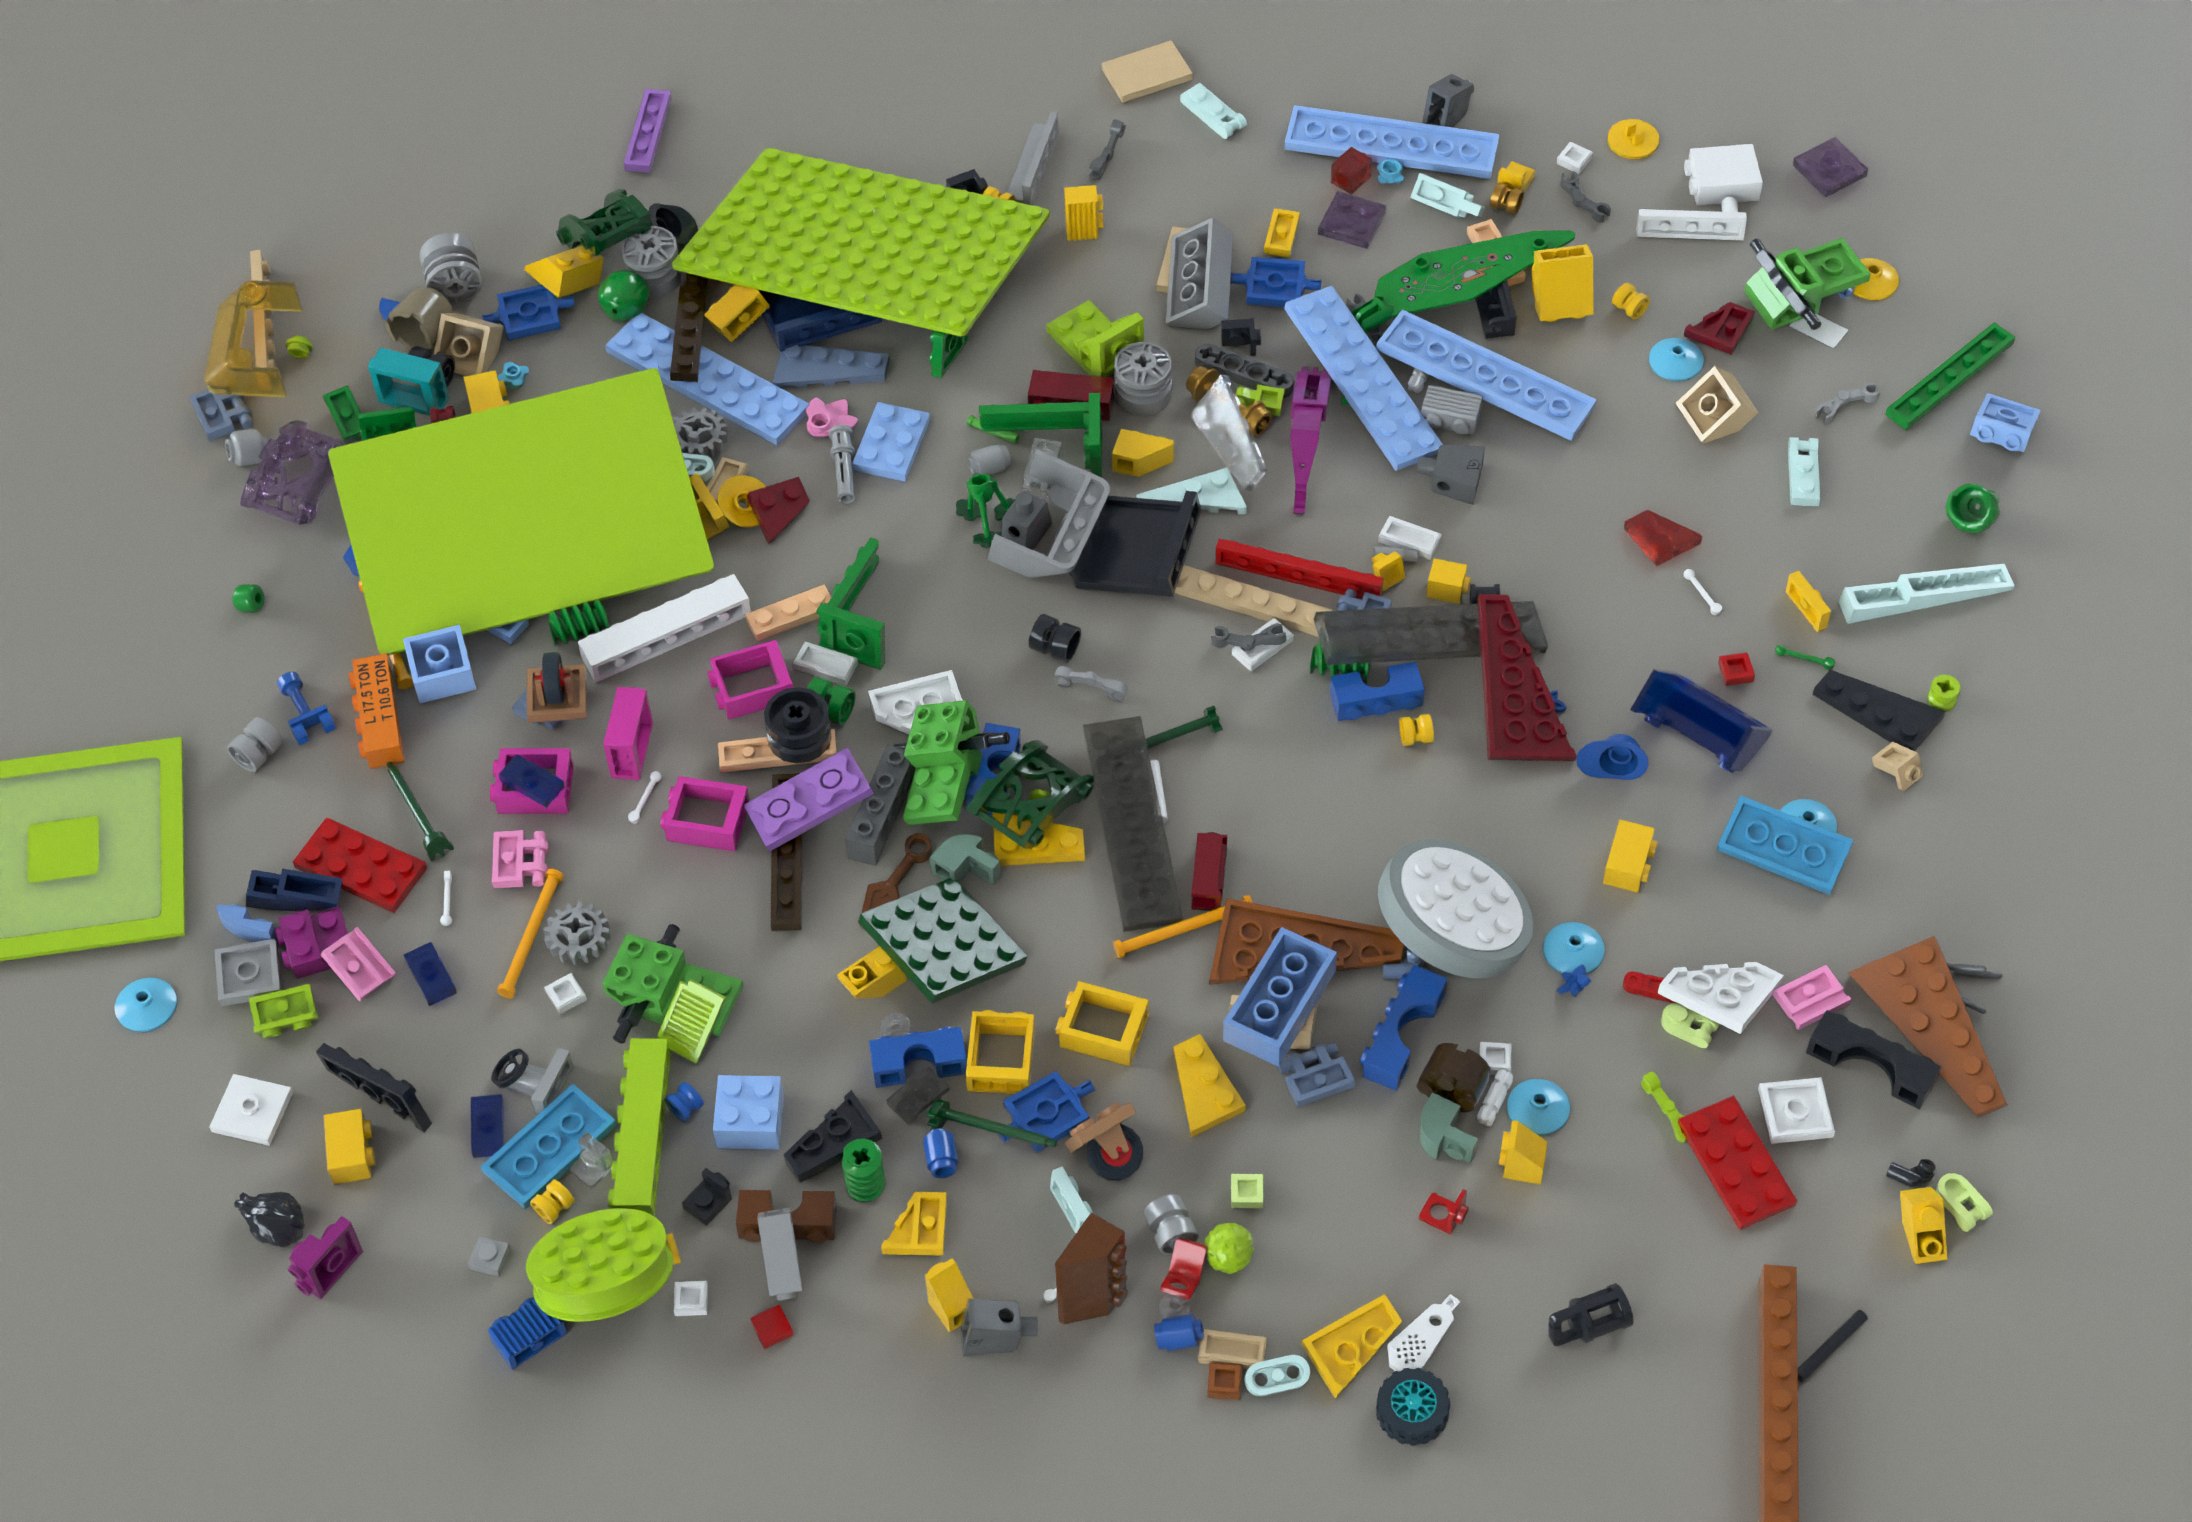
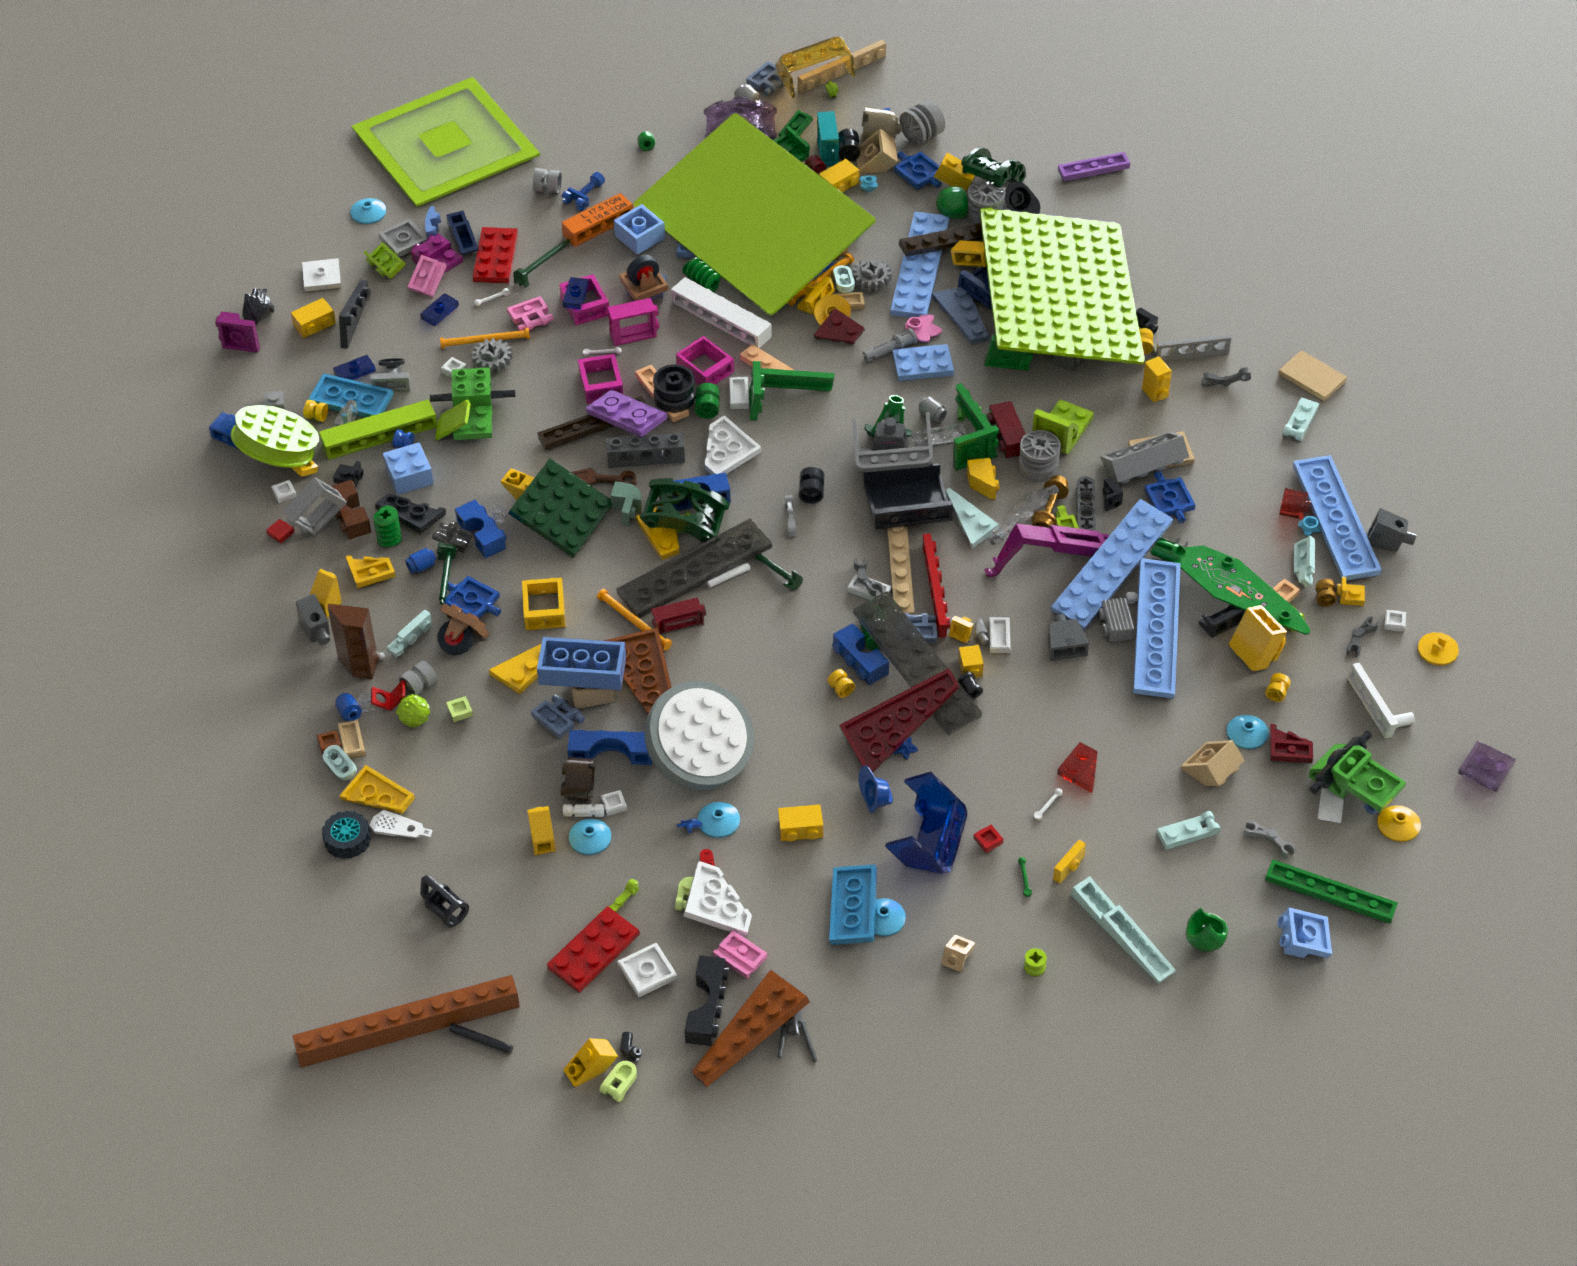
camera: 65 degrees right, 5 degrees down
(945, 752) = (692, 458): bright green piece -> none
(999, 1079) = (497, 551): yellow window -> none
(1281, 233) = (1215, 487): yellow plate -> none
(1352, 219) = (1254, 520): clear purple plate -> none
(1439, 1133) = (544, 785): sand green brick -> none
(1456, 1210) = (489, 810): red bracket -> none
(1723, 173) = (1434, 705): white brick -> none
(1879, 710) = (1001, 935): black wing -> none

